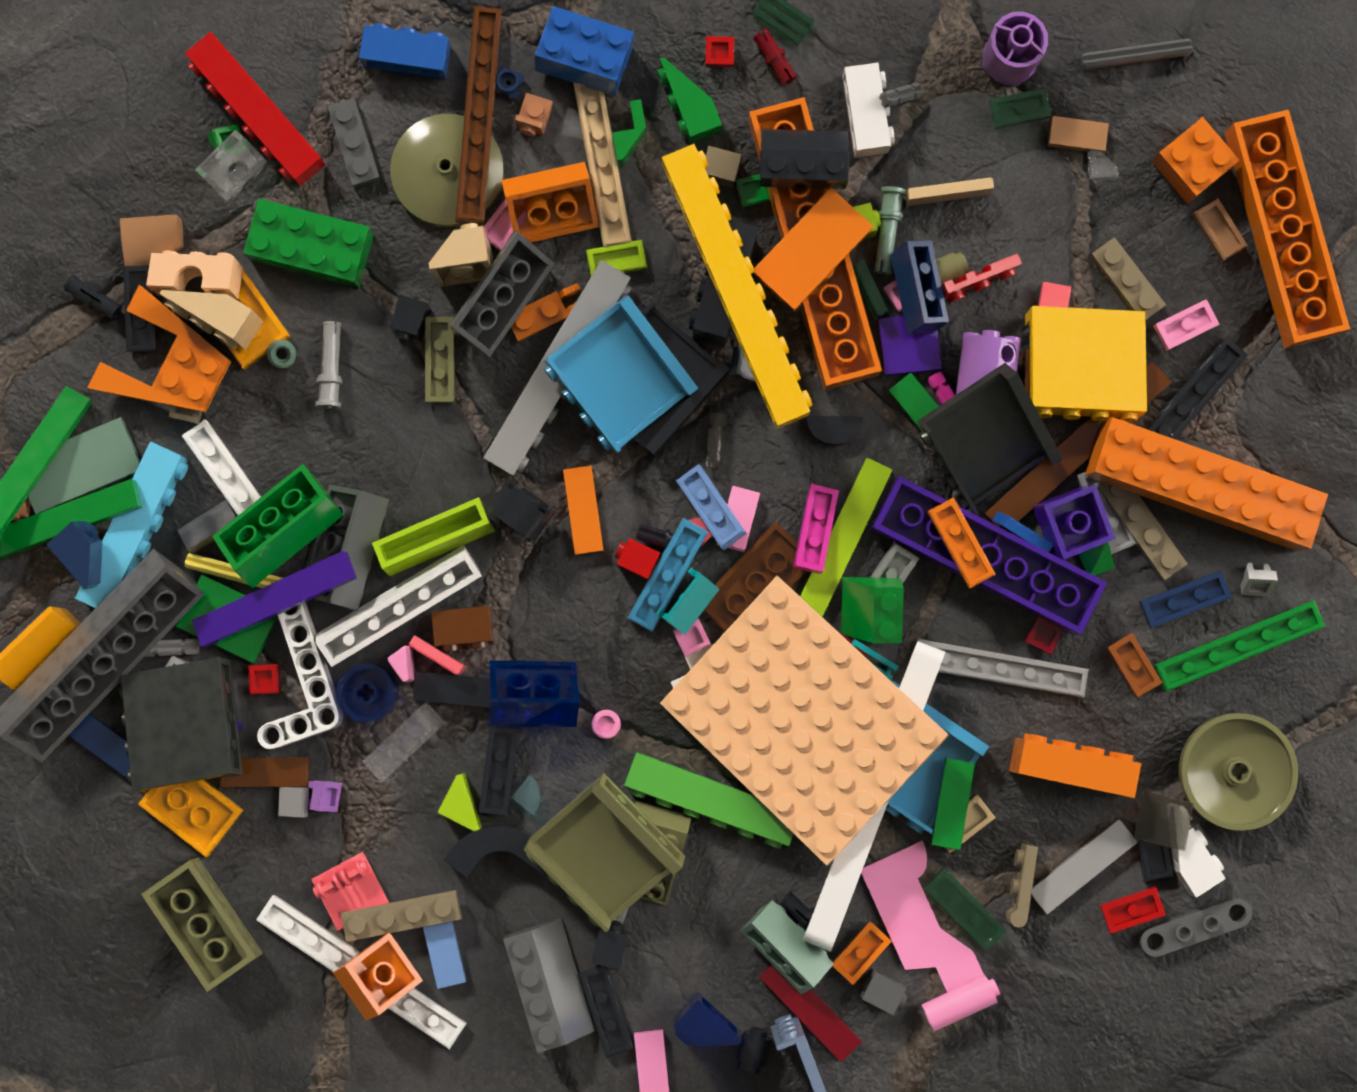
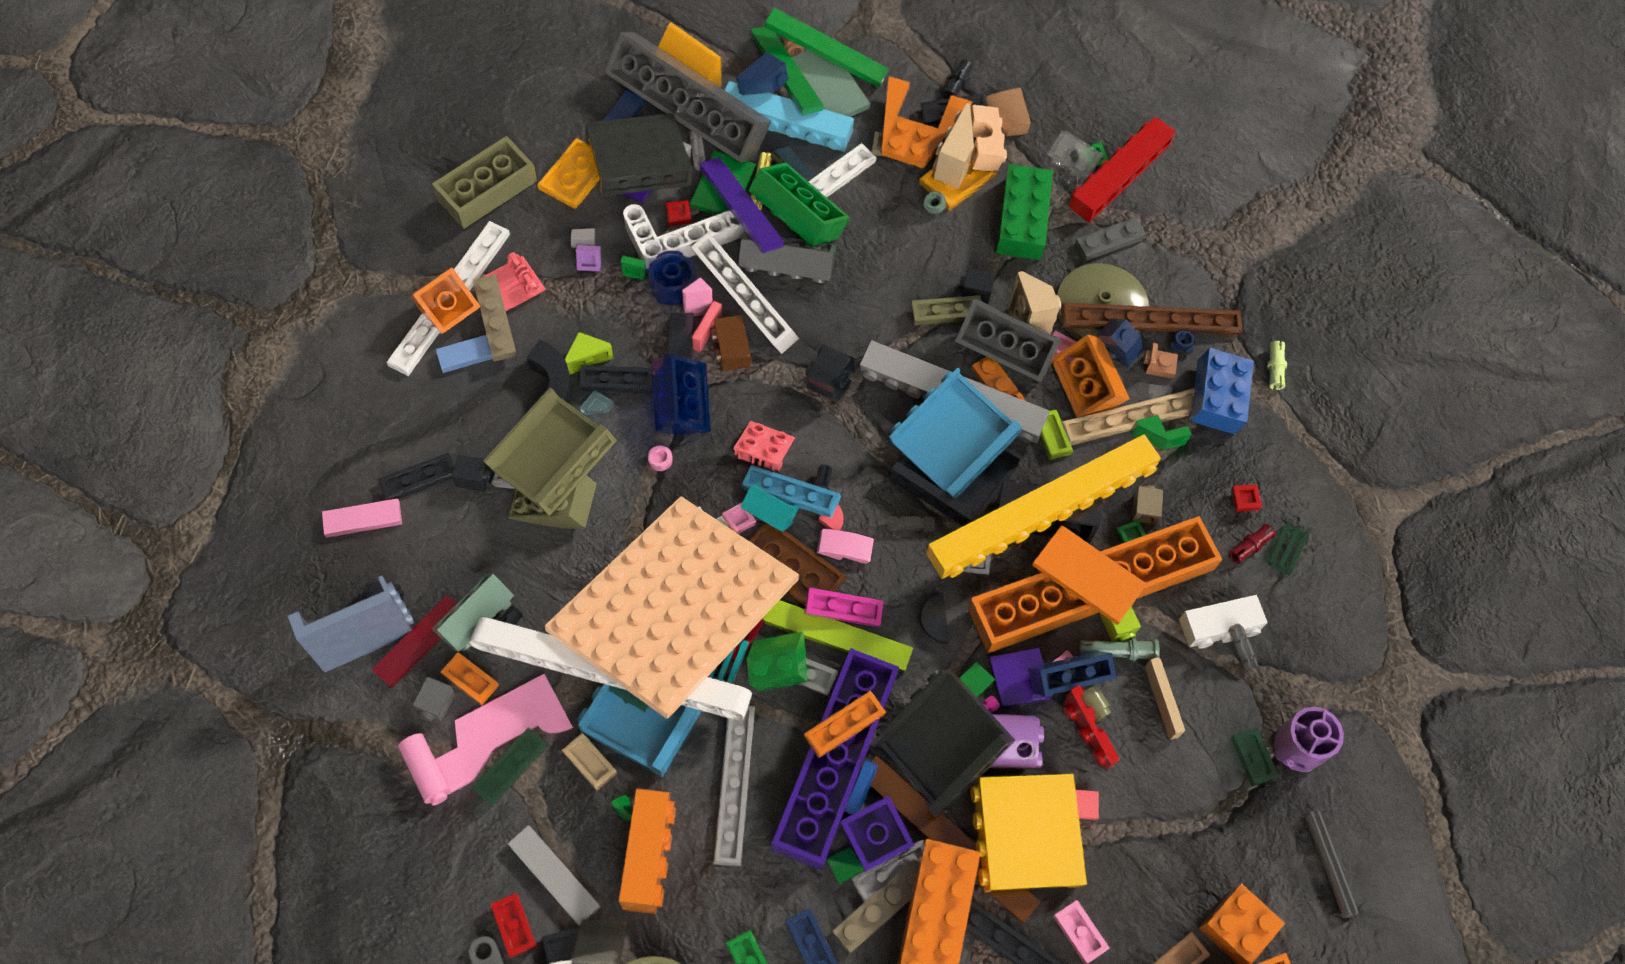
camera: 80 degrees right, 20 degrees down
(271, 773) = (605, 220): reddish brown tile -> none
(329, 379) = (919, 235): light grey pin -> none
(345, 740) = (633, 267): none -> green tile
(404, 742) = (635, 311): clear tile -> none
(405, 51) = (1191, 265): blue brick -> none
(433, 537) = (801, 311): lime brick -> none
(508, 159) = (1122, 340): none -> dark blue slope
(549, 985) = (439, 428): dark grey slope -> none
(583, 510) = (838, 426): orange tile -> none
(601, 599) = (763, 444): none -> coral hinge
(637, 558) = (802, 465): red brick -> none
(694, 106) = (1189, 482): green slope -> none
(704, 1025) = (405, 548): clear blue slope -> none
(705, 797) = (602, 531): bright green brick -> none
(711, 507) = (852, 520): medium blue tile -> none
(804, 159) = (1166, 558): black slope -> none
(870, 290) = (1063, 636): clear green tile -> none
(952, 804) = (606, 746): green tile -> none
(1021, 789) = (623, 808): none -> green slope
(1022, 885) = (534, 817): dark tan plate -> none
(1043, 635) = (767, 818): dark red plate -> none
(1077, 134) = (1242, 814): medium nougat tile -> none
(1101, 167) = (1216, 839): clear tile -> none
(1127, 278) = (1114, 873): dark tan plate -> none
(1133, 665) = (747, 907): dark orange plate -> none

